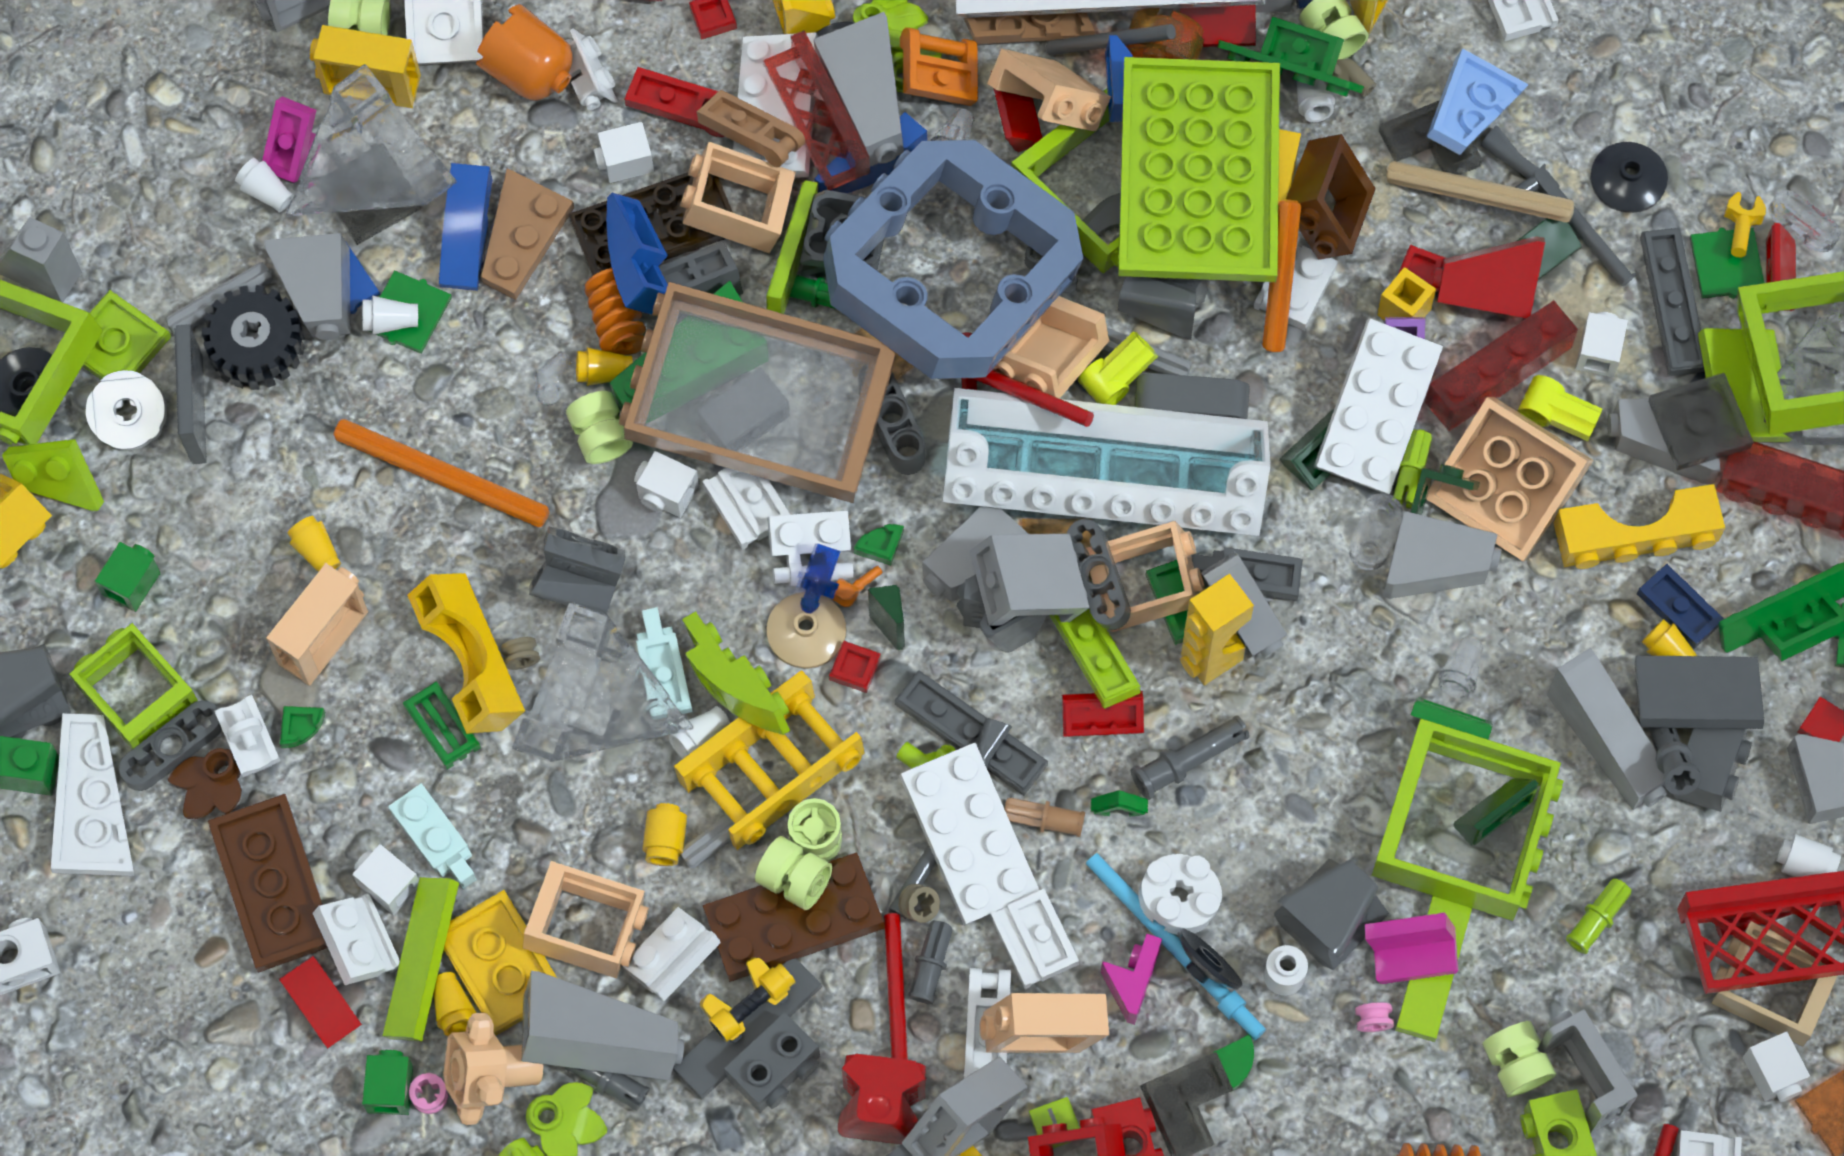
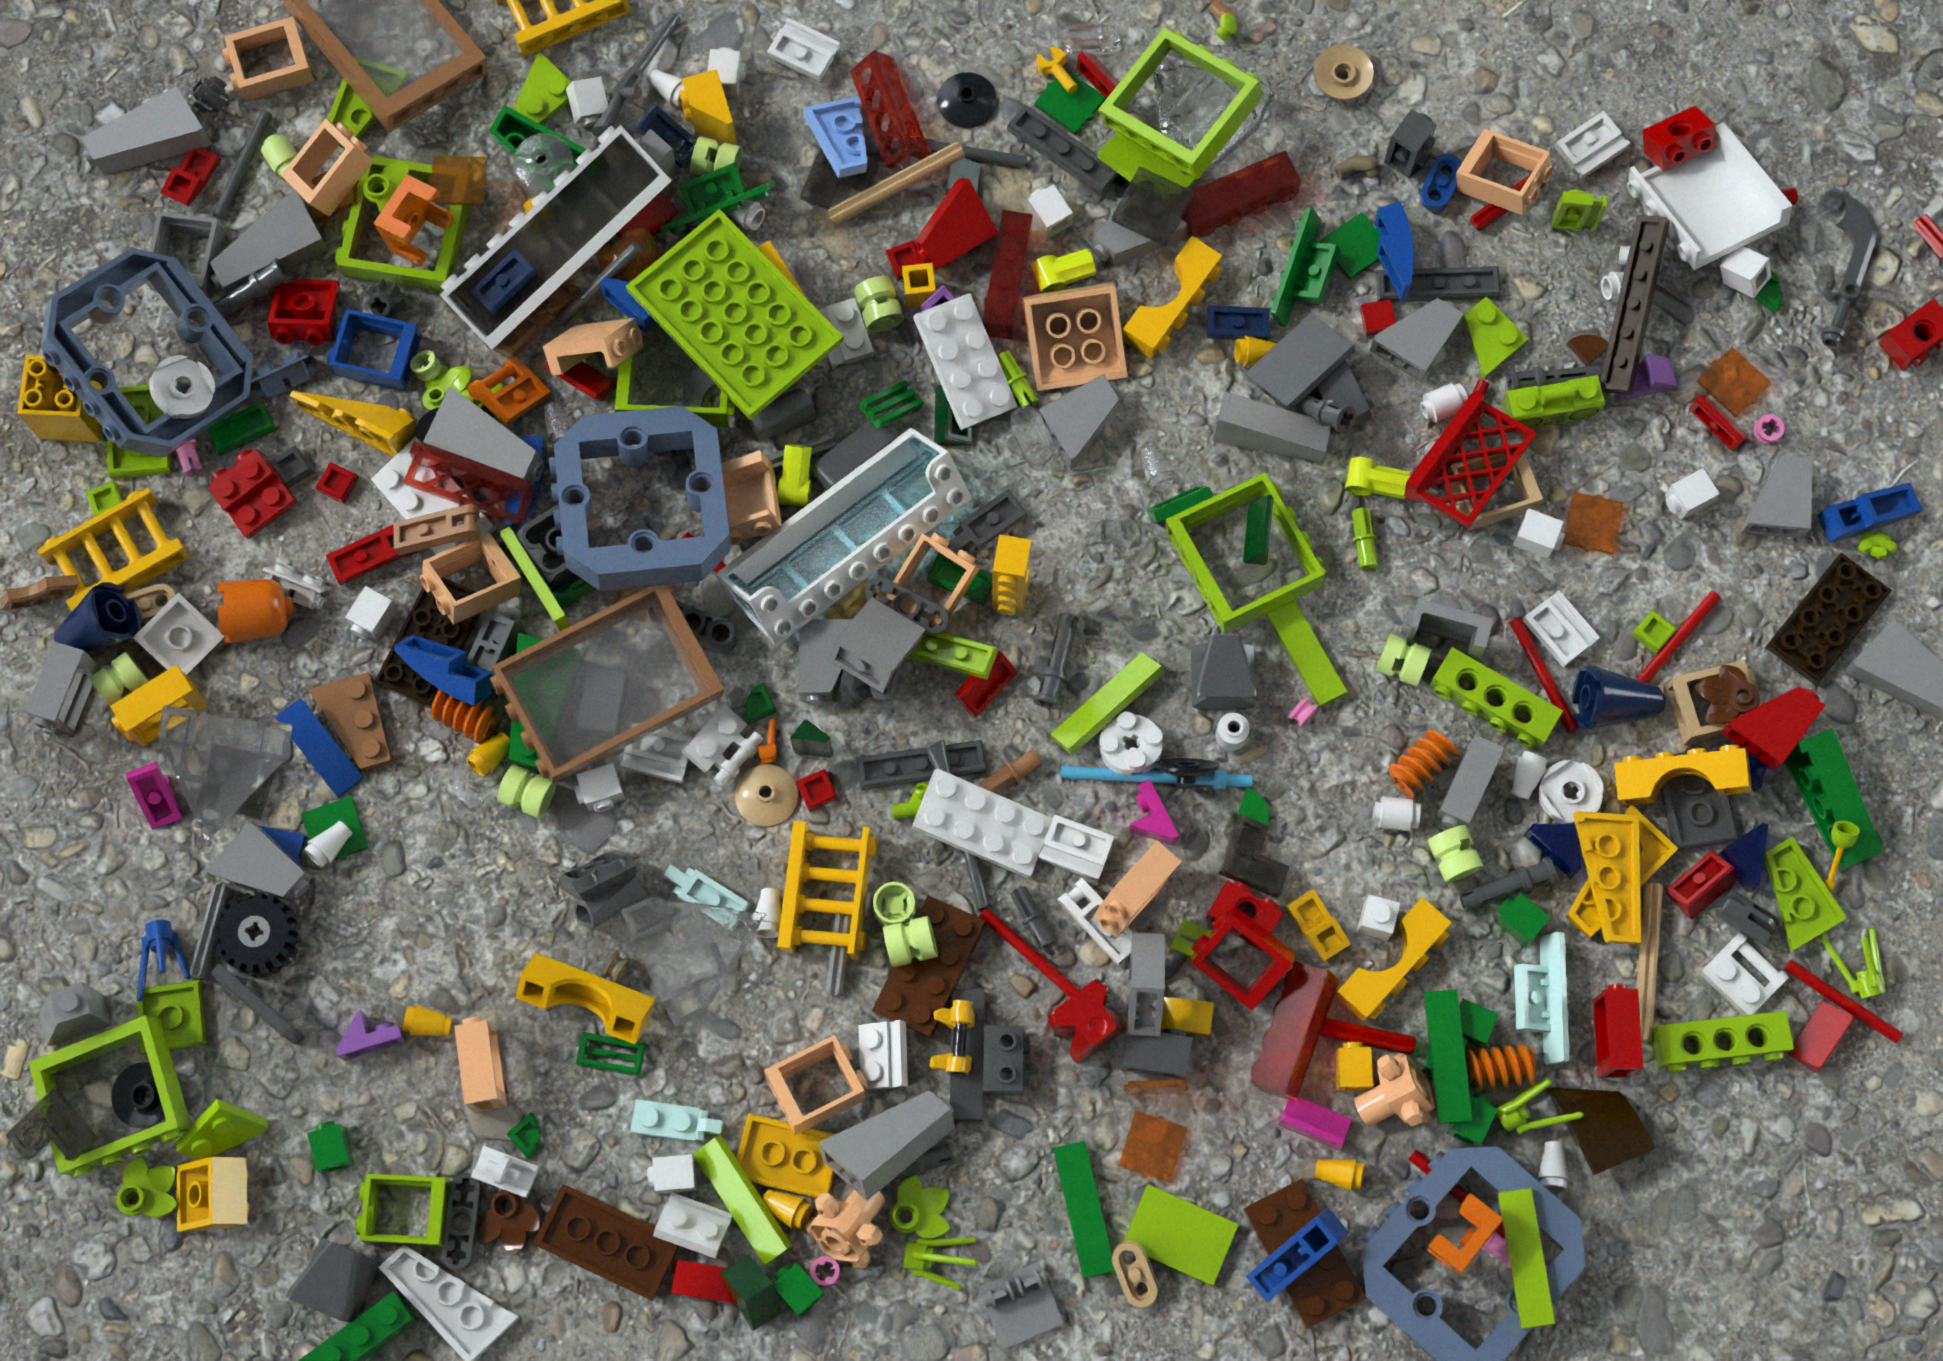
camera: 45 degrees left, 5 degrees up
(112, 428) = (224, 1032): white plate -> none
(169, 266) = (158, 939): none -> blue plant
(246, 508) = (360, 1041): none -> medium lavender slope
(262, 183) = (164, 837): white cone -> none
(346, 1047) = (752, 1292): none -> dark green slope
(441, 473) = (456, 907): orange axle -> none
(664, 834) = (809, 991): yellow brick -> none
(734, 680) = (764, 866): lime slope -> none
(818, 577) = (747, 758): clear blue piece -> none
(908, 900) = (992, 890): dark tan bush -> none
(1038, 398) = (774, 534): red bar -> none
(1119, 801) = (1045, 725): green tile -> none
(1197, 836) = (1107, 703): none -> lime tile
(1264, 629) = (983, 536): light grey slope -> none
(1271, 378) = (906, 395): none -> green tile
(1280, 291) = (847, 349): orange axle -> none
(1331, 166) = (819, 263): reddish brown window -> none
(1352, 285) = (880, 308): none -> yellowish green wheel
(1413, 948) = (1288, 653): dark pink panel -> none
(1446, 474) = (1042, 366): dark green bracket -> none
(1552, 119) = (893, 102): none -> clear red fence
(1661, 861) = (1368, 477): none -> neon yellow piece

